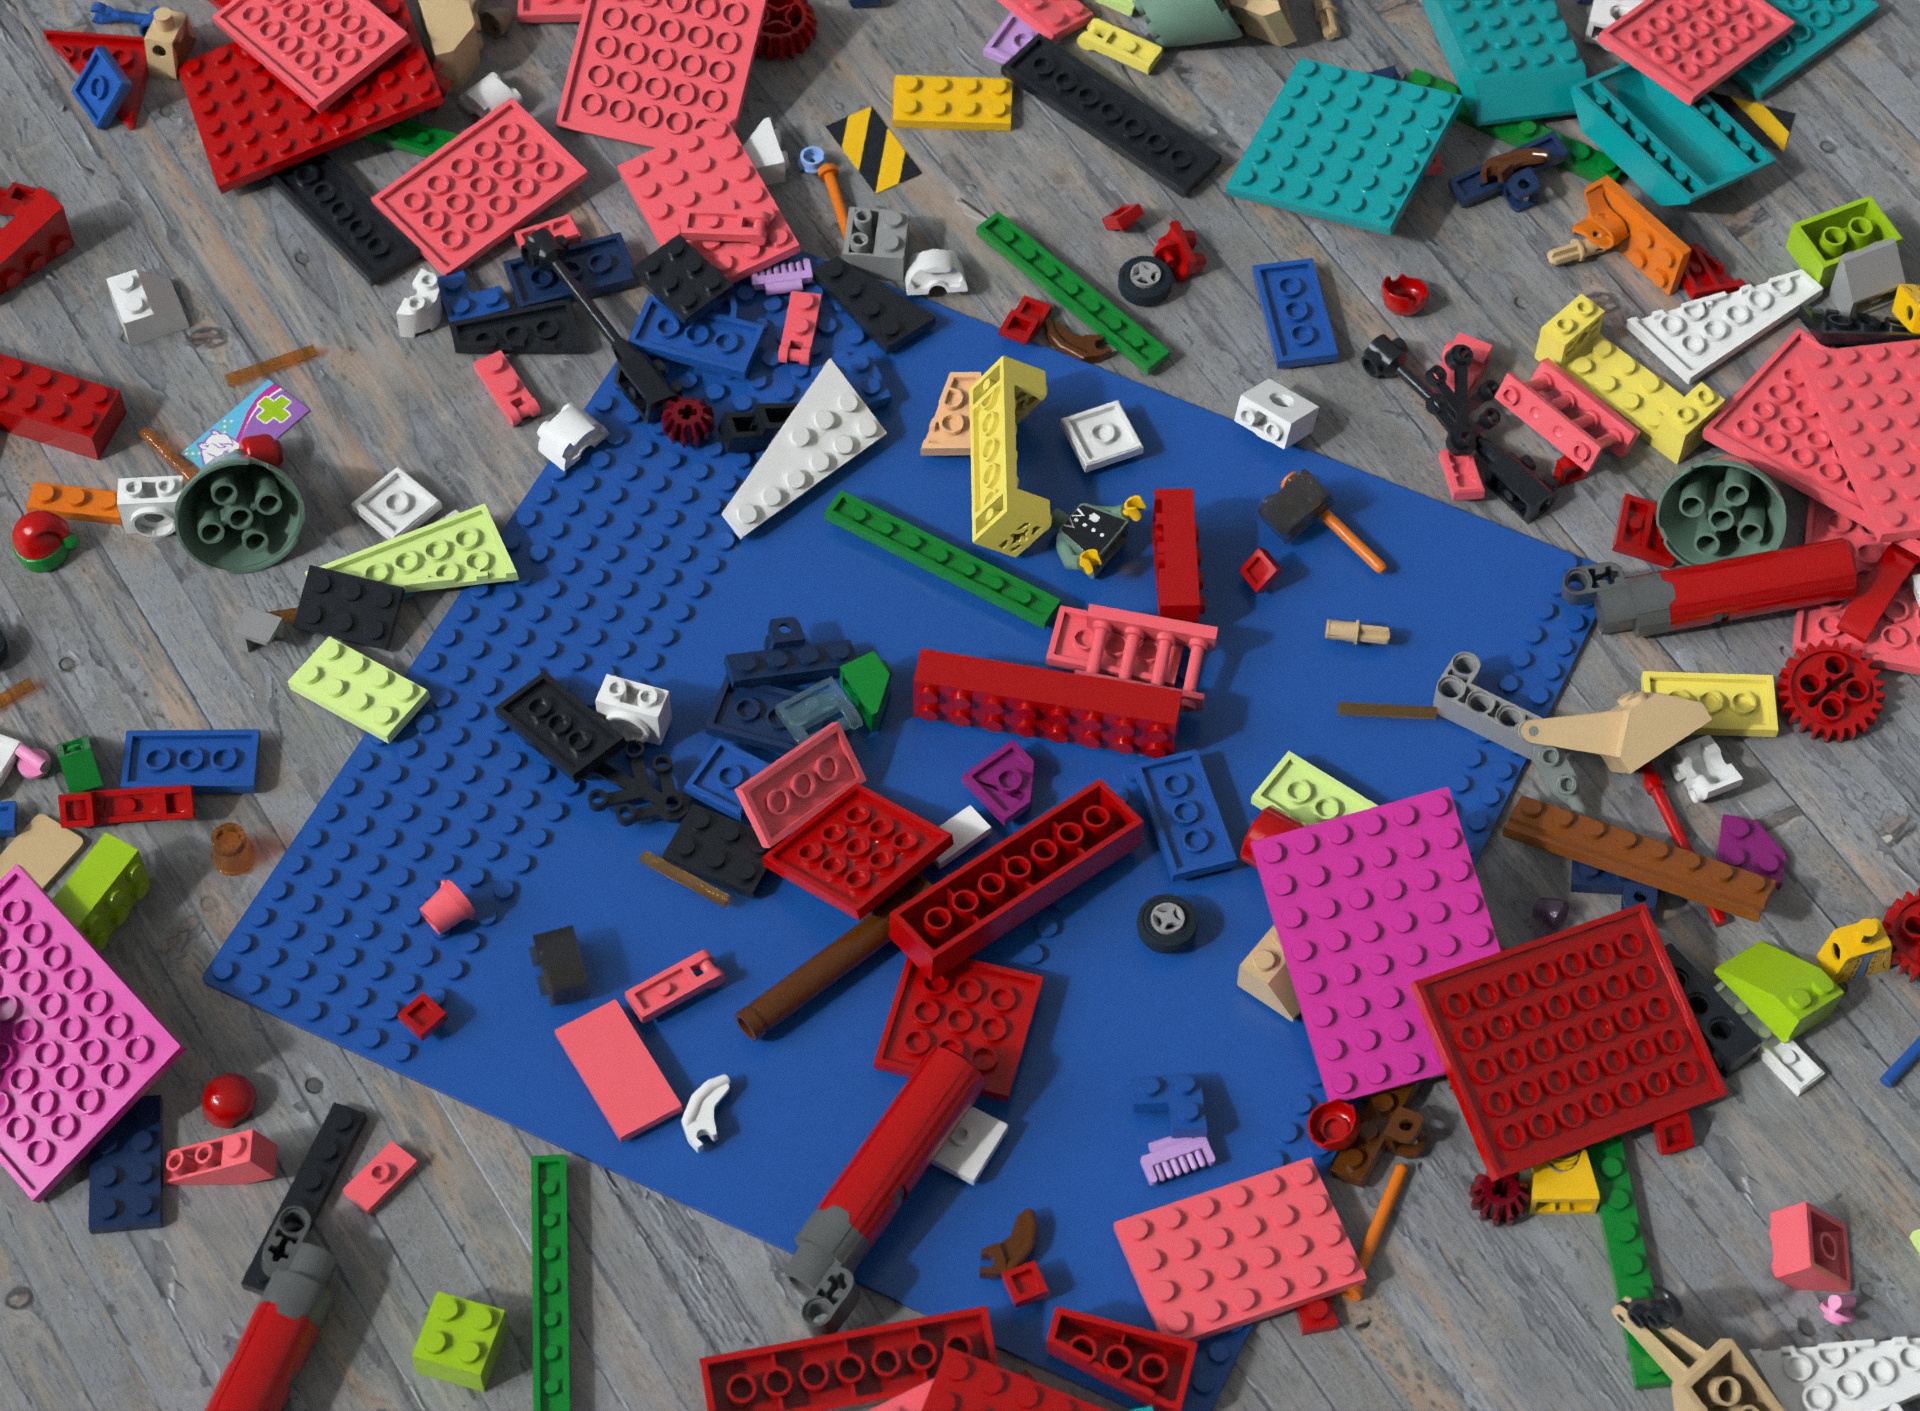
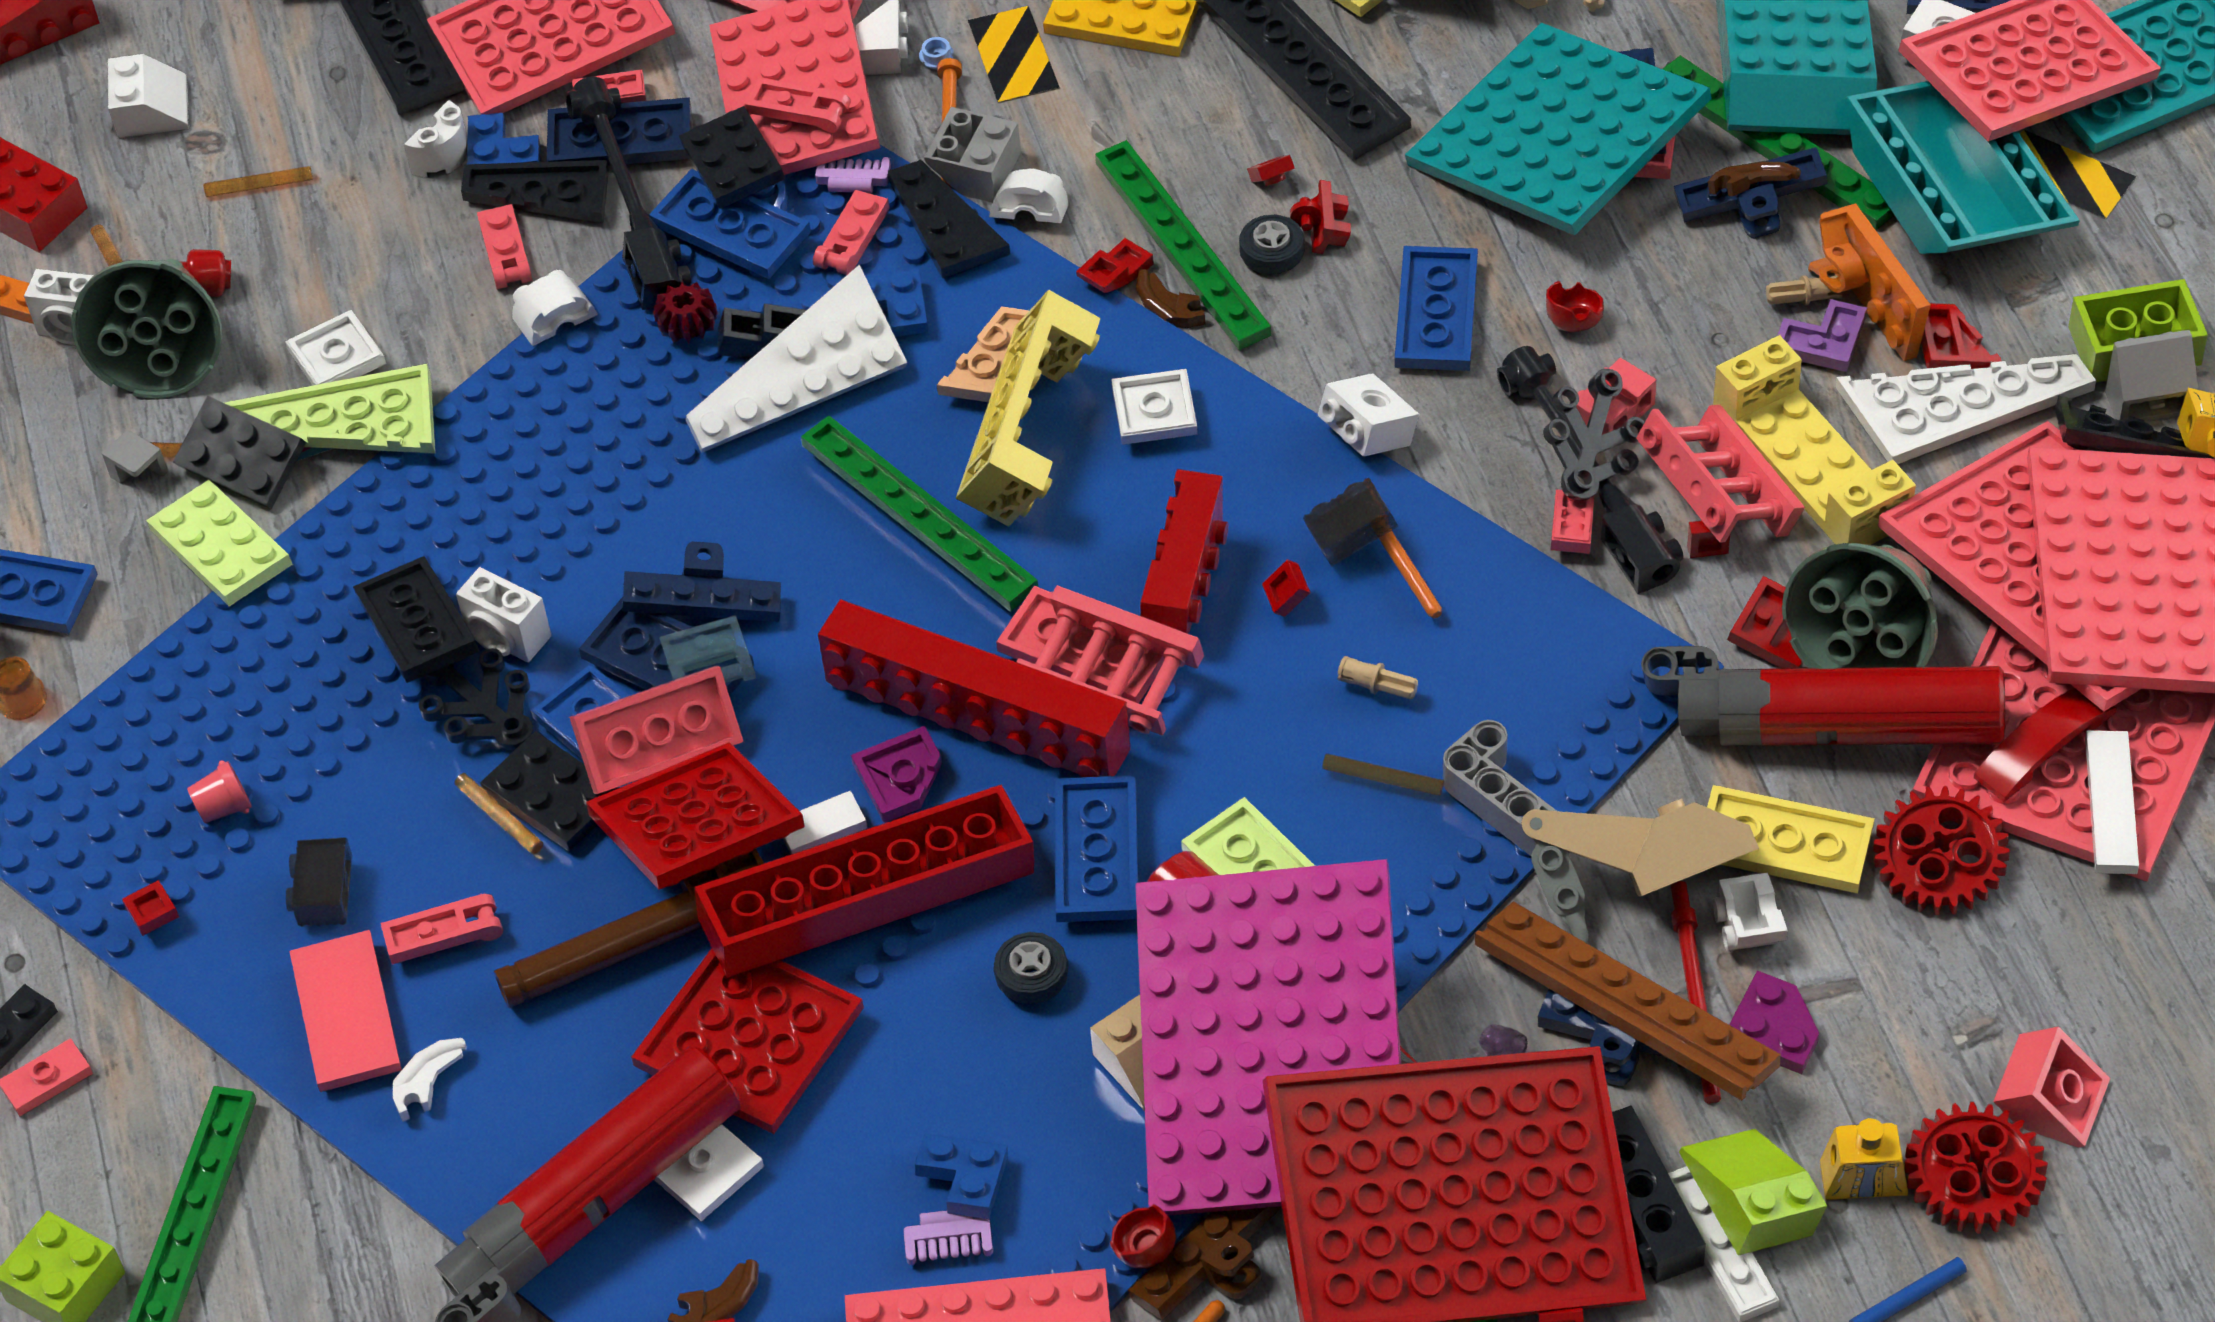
camera: 20 degrees right, 5 degrees down
(262, 412) = (233, 231): sticker -> none
(867, 686) = (781, 638): green slope -> none
(1093, 533) = (1102, 513): torso -> none
(1612, 288) = (1830, 343): none -> medium lavender plate

